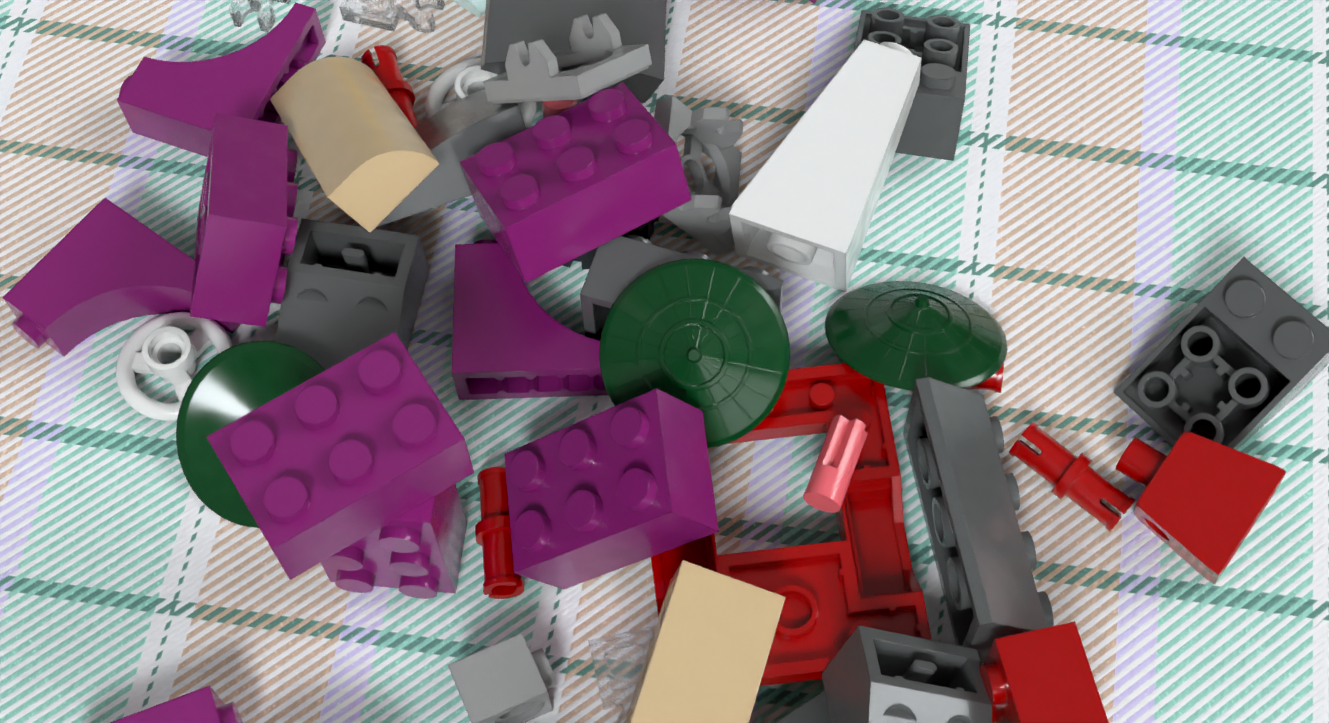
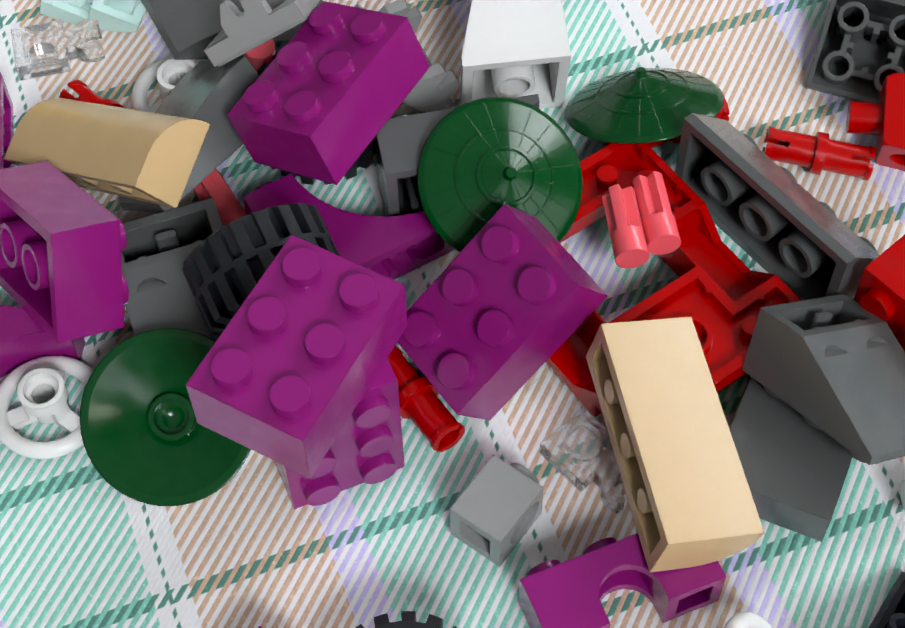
camera: 30 degrees left, 5 degrees down
(434, 324) = (238, 254): none -> black tyre
(445, 231) = (226, 202): none -> coral piece
(795, 463) = (625, 227): none -> coral piece

